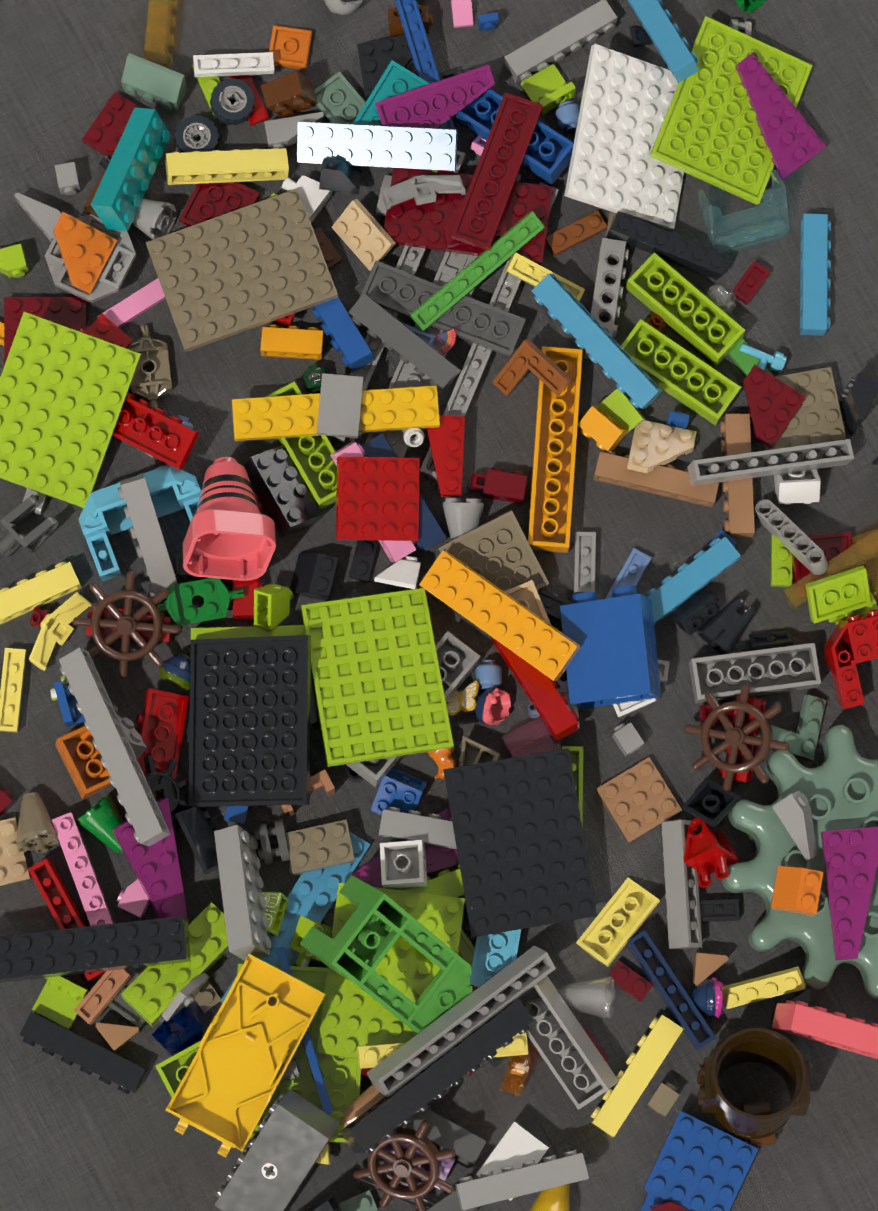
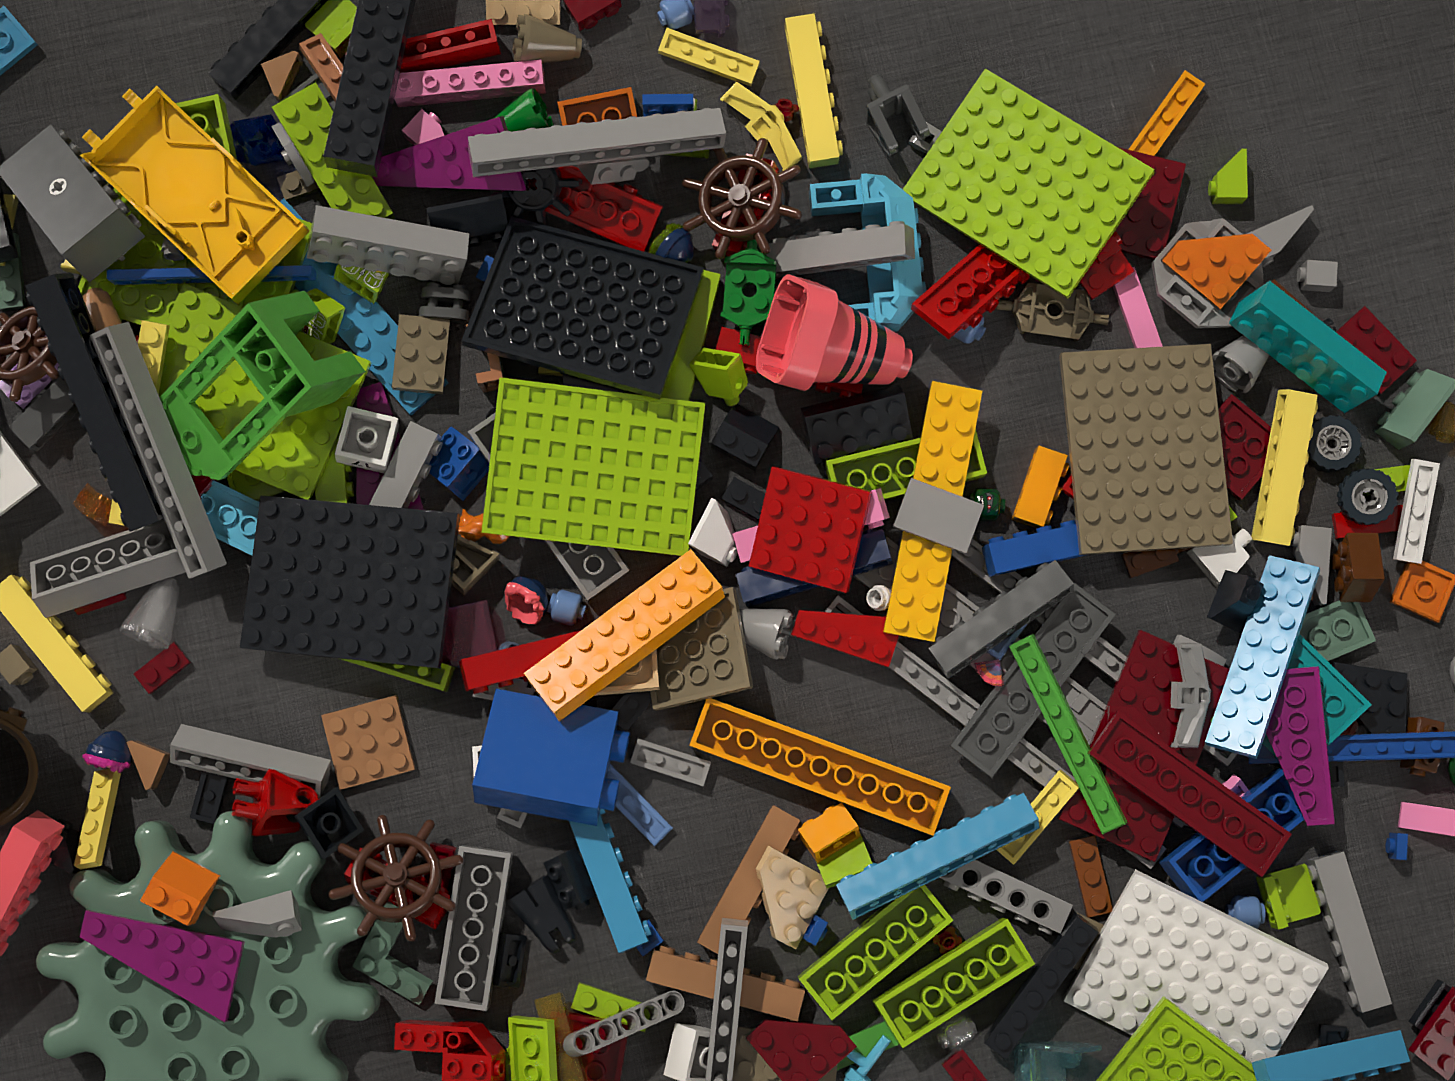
camera: 110 degrees right, 5 degrees up
(363, 234) = (1154, 610): tan plate -> none
(463, 700) = (545, 567): yellow animal -> none
(501, 485) = (793, 689): dark red brick -> none
(531, 358) = (937, 767): dark orange plate -> none
(617, 922) = (232, 674): light yellow slope -> none
(627, 738) = (442, 749): light grey brick -> none
(670, 990) = (132, 710): dark blue brick -> none

